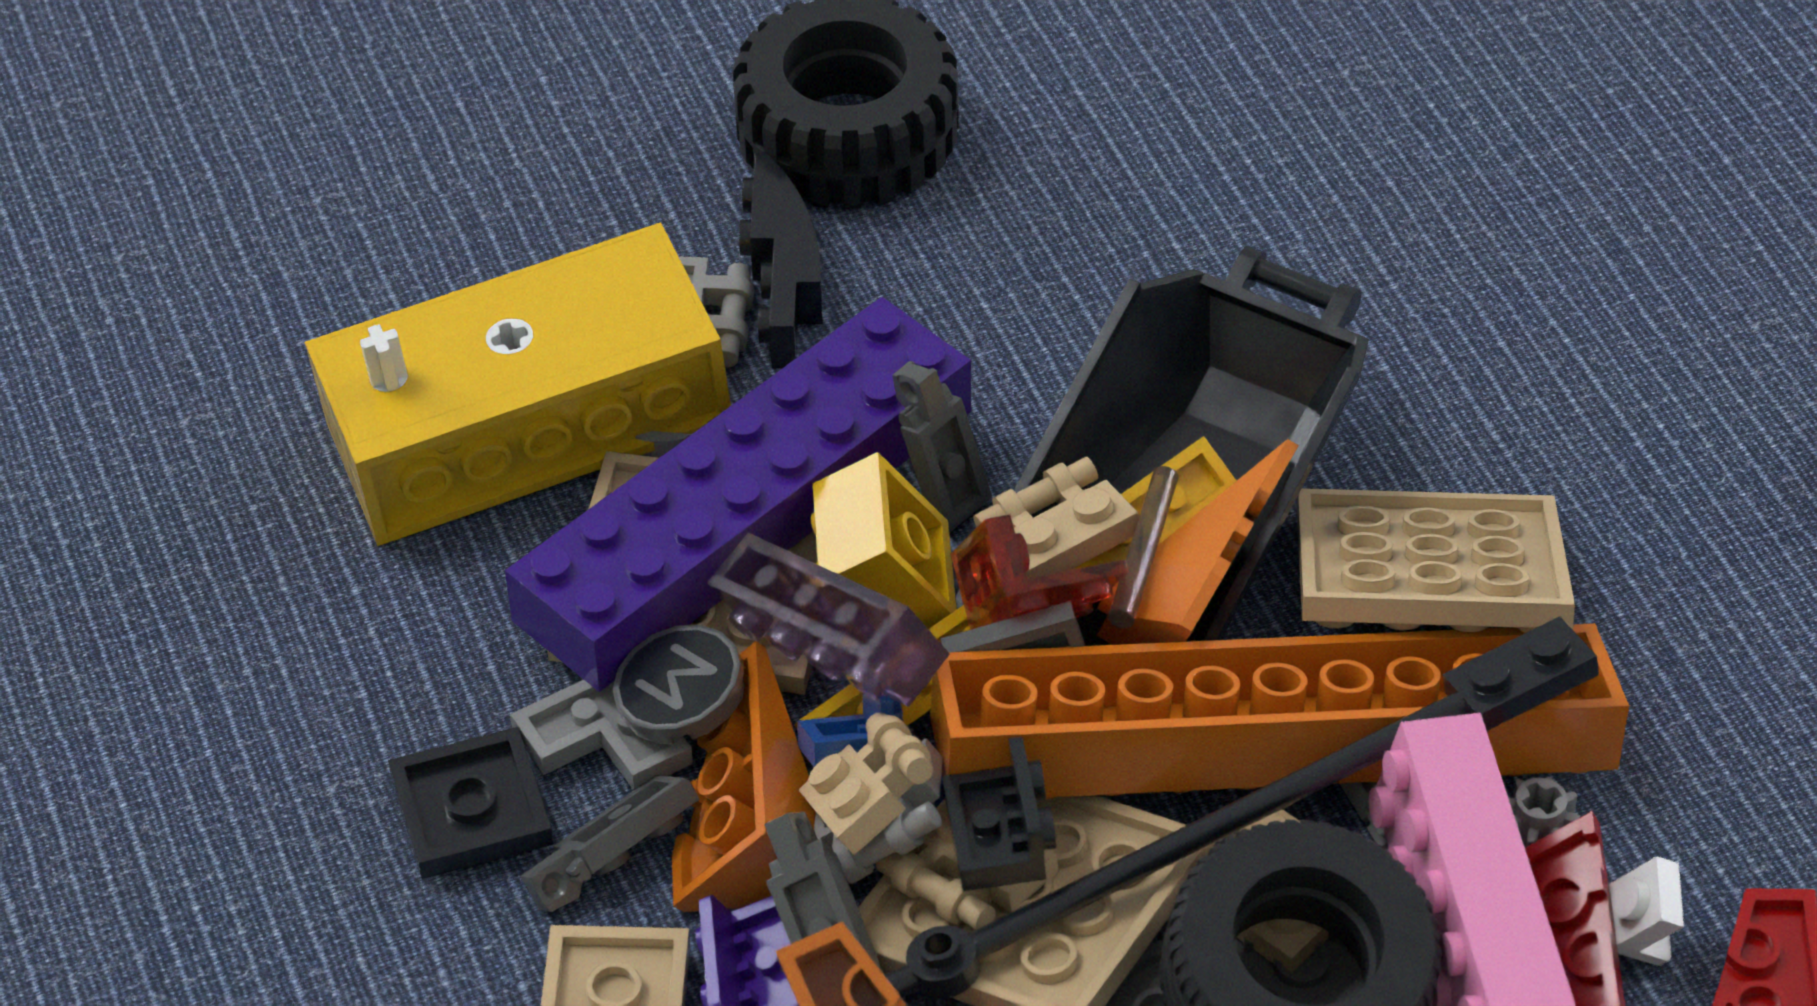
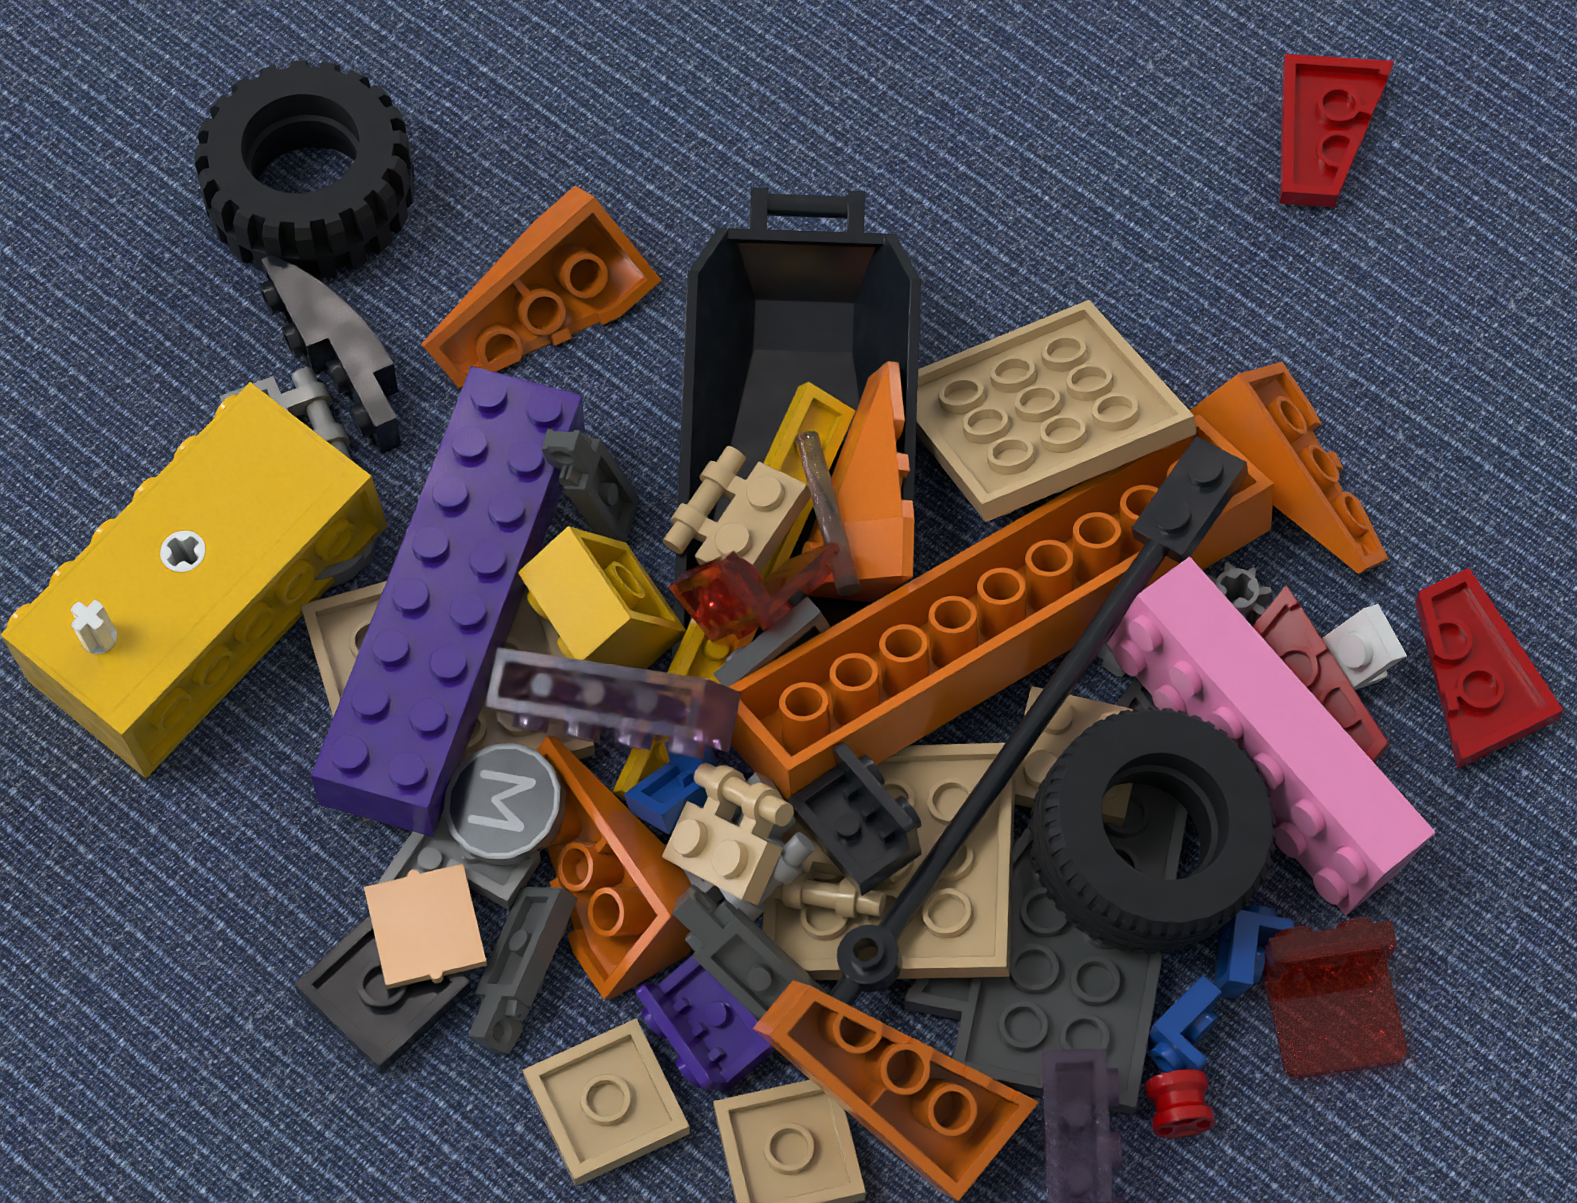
camera: 30 degrees left, 15 degrees up
(540, 761) = (425, 926): none -> light nougat piece
(1019, 284) = (551, 283): none -> orange wedge
(1679, 697) = (1273, 428): none -> orange wedge

